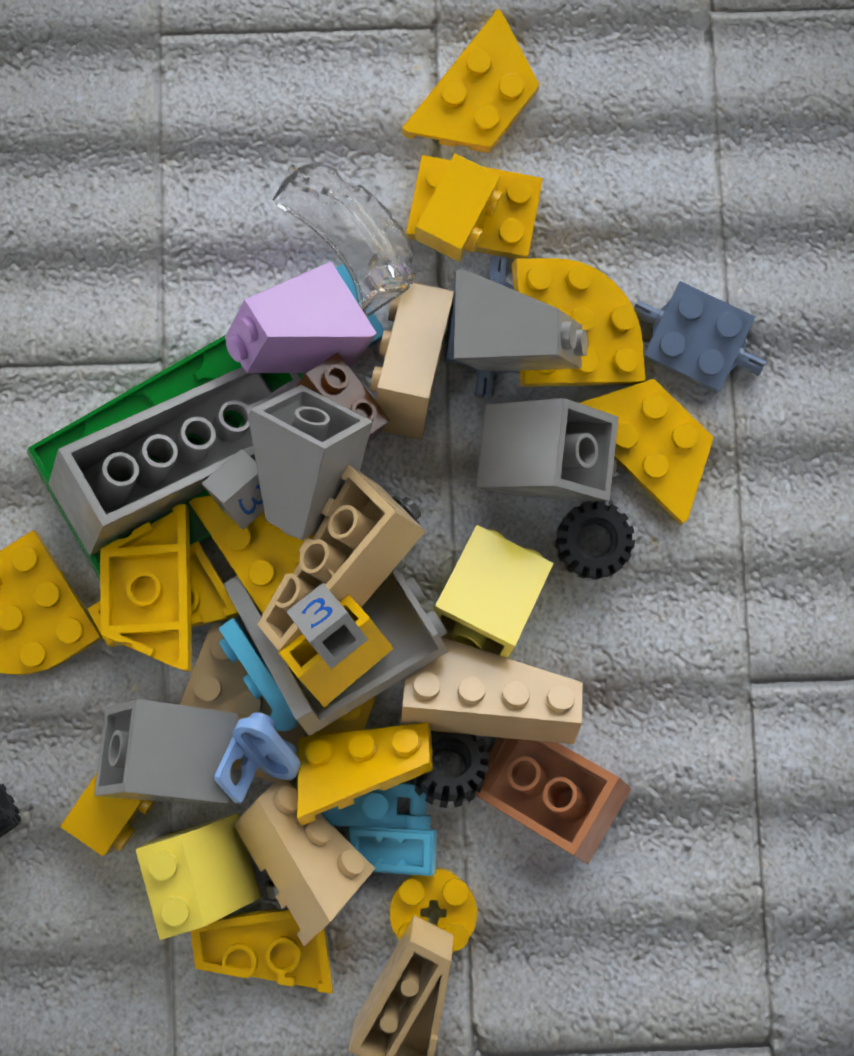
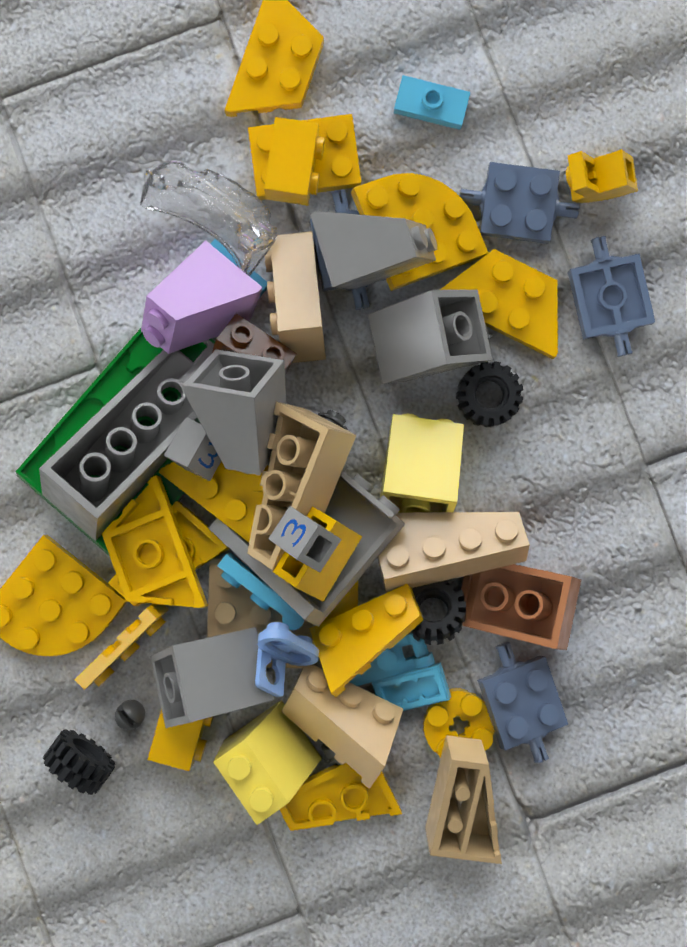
camera: 15 degrees left, 5 degrees up
(43, 703) = (124, 647): none -> yellow wing
(64, 766) = (134, 710): none -> dark grey hinge
(516, 910) = (522, 702): none -> sand blue plate
(636, 194) = (431, 102): none -> medium azure plate
(769, 476) = (611, 296): none -> sand blue plate
(799, 339) = (600, 177): none -> yellow brick

